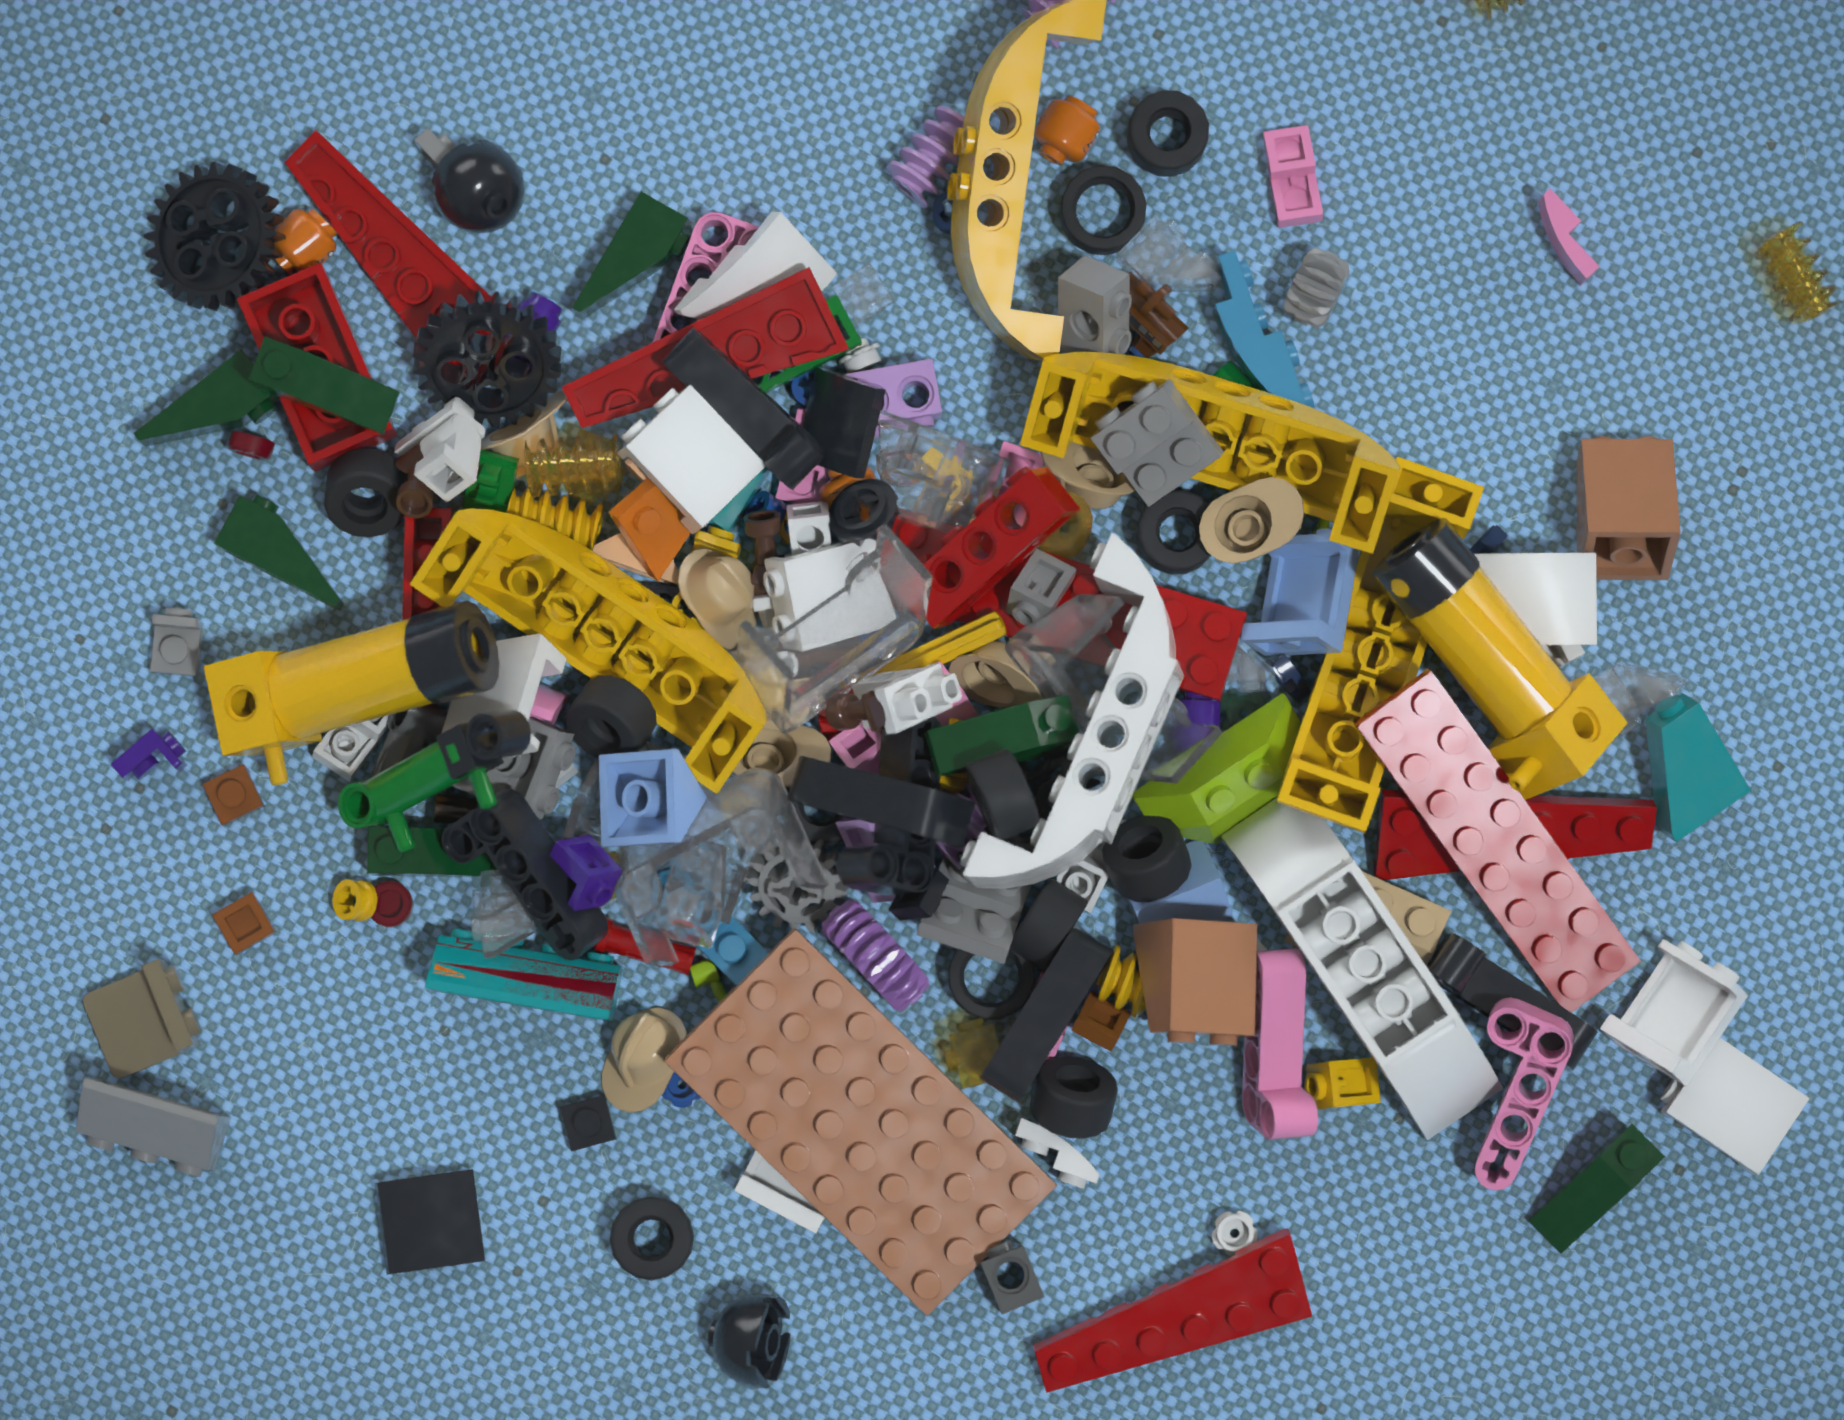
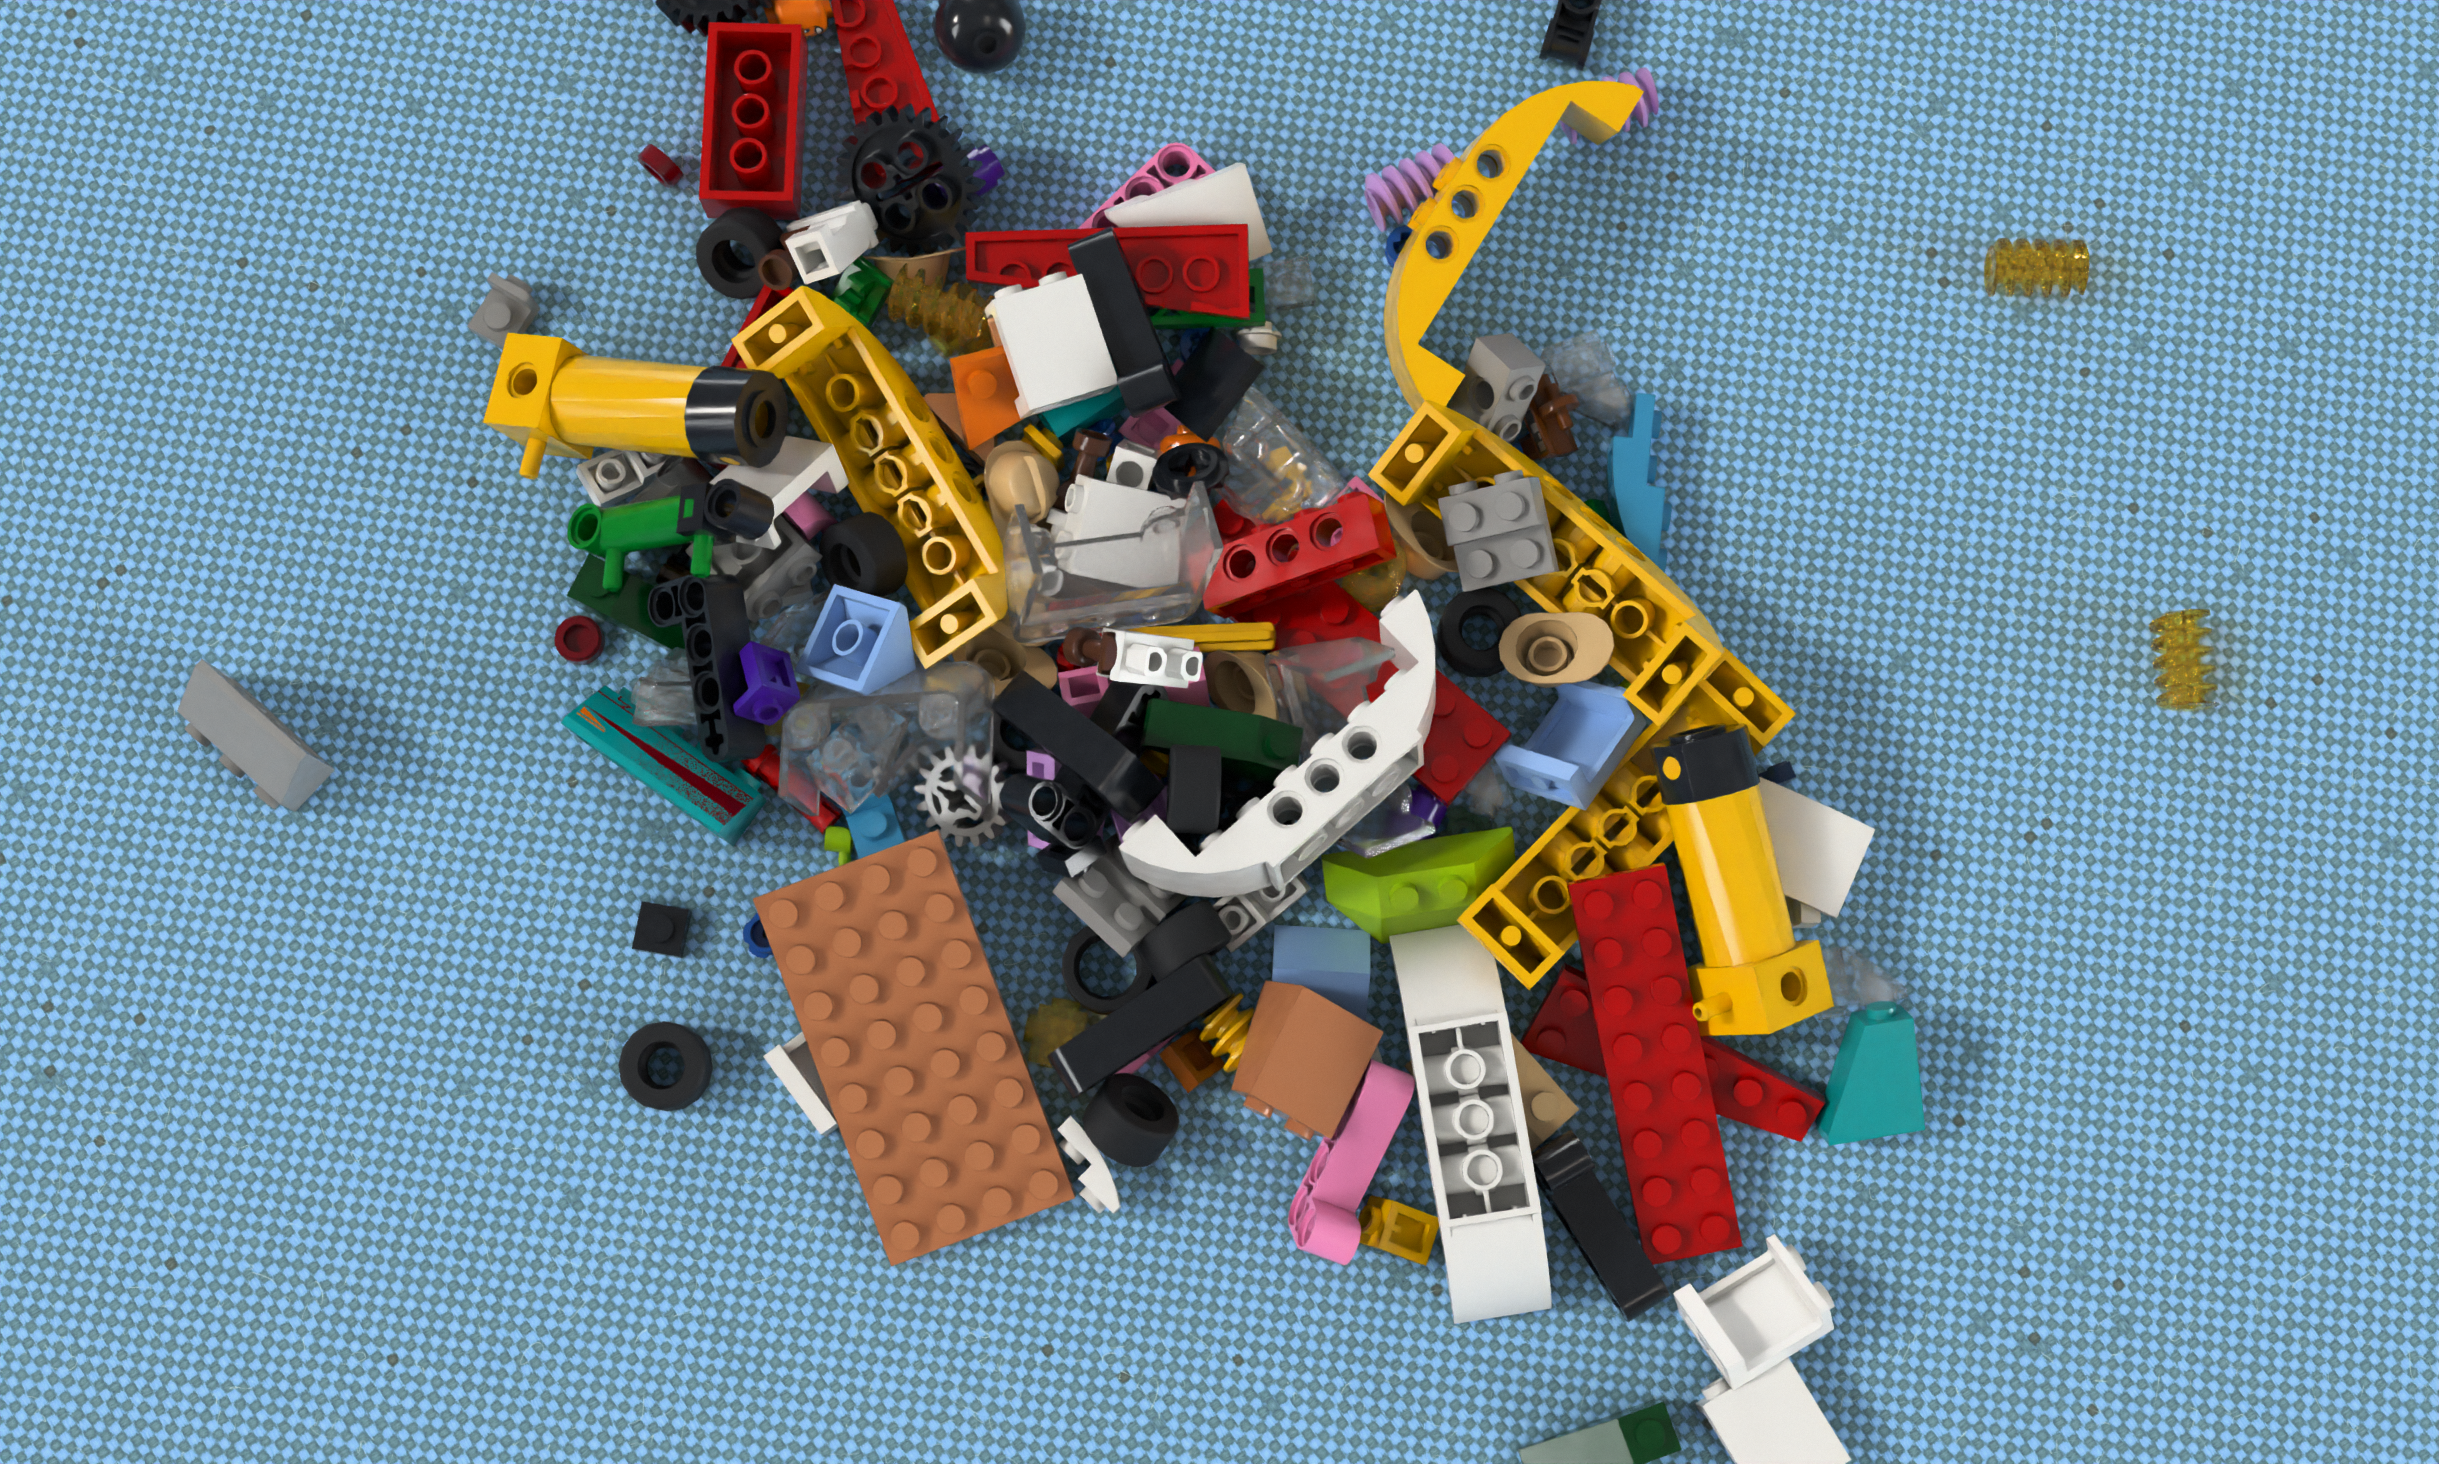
camera: 25 degrees right, 5 degrees down
(141, 756) = (419, 397): dark purple bracket -> none
(142, 1019) = (297, 638): dark tan bracket -> none
(213, 405) = (654, 113): dark green slope -> none
(233, 795) = (486, 474): dark orange plate -> none
(244, 923) = (435, 594): dark orange plate -> none
(267, 543) = (632, 260): dark green slope -> none
(322, 386) = (743, 128): dark green slope -> none
(344, 900) = (547, 619): yellow bush -> none
(429, 1221) = (466, 952): black slope -> none
(572, 523) = (919, 367): yellow piece -> none
(635, 1066) = (725, 901): tan piece -> none
(637, 251) = (1094, 153): dark green slope -> none
(750, 1340) = (711, 1208): black cylinder -> none
(875, 955) = (1005, 894): medium lavender gear -> none
(896, 381) = (1285, 374): lavender brick -> none
(1011, 1298) = (976, 1286): dark grey brick -> none
(1039, 587) = (1324, 617): light grey bracket -> none
(1066, 130) = (1547, 221): orange head -> none
(1107, 176) = (1551, 273): black tyre -> none
(1147, 858) = (1308, 923): black tyre -> none
(1167, 104) = (1645, 237): black tyre -> none
(1214, 1305) = (1172, 1387): red wing -> none
(1229, 1221) = (1237, 1333): white plate -> none
(1290, 679) = (1524, 818): dark blue tile -> none
(1293, 176) = (1740, 357): bright pink slope -> none
(1316, 287) = (1716, 465): light grey gear -> none
(1516, 1098) = (1560, 1322): bright pink beam -> none
(1559, 224) = (1974, 513): bright pink slope -> none
(1628, 506) = (1924, 804): nougat slope -> none

